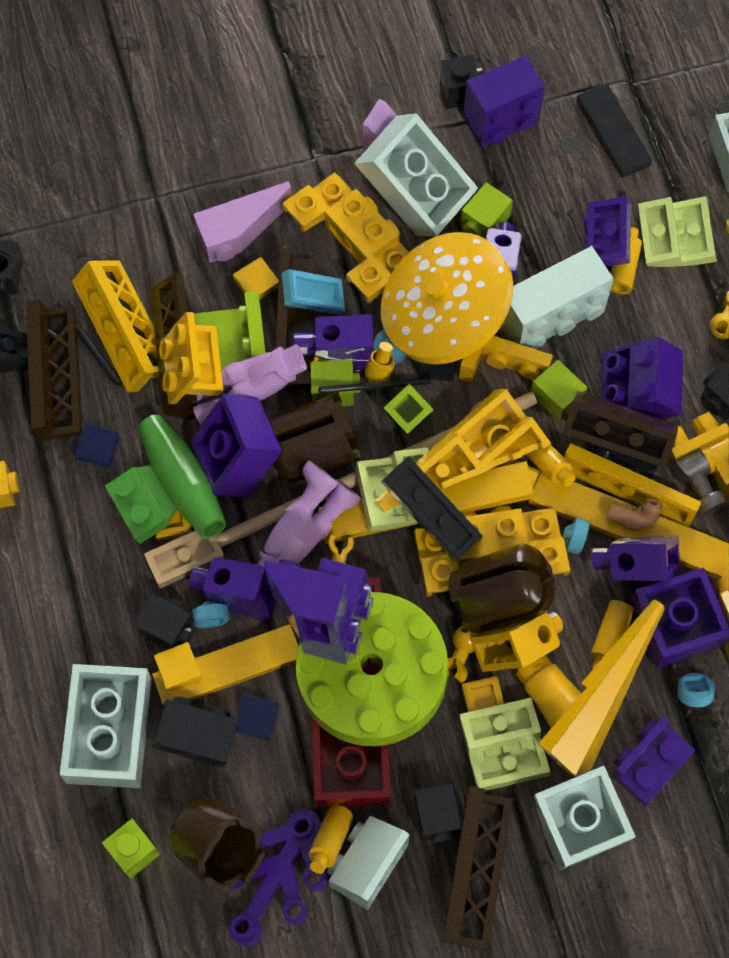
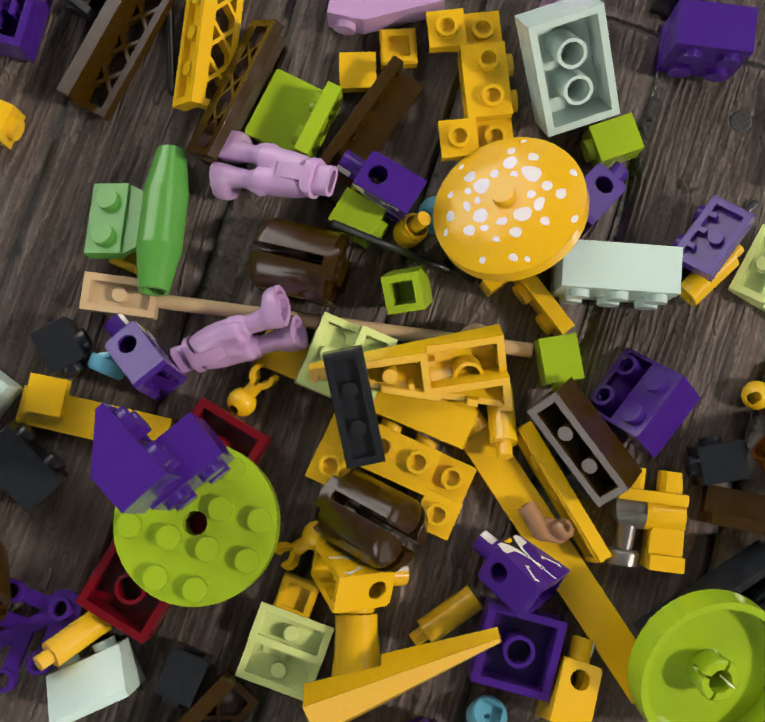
camera: 30 degrees right, 15 degrees up
(97, 445) = (113, 140): clear blue tile -> none
(191, 360) = (232, 119): yellow bracket -> none
(235, 445) = (223, 226): dark purple brick -> none
(257, 717) = (83, 486): clear blue tile -> none
(270, 243) = (399, 43): none -> yellow tile
(313, 292) = (396, 118): medium azure tile -> none
(576, 535) = (478, 506): medium azure tile -> none

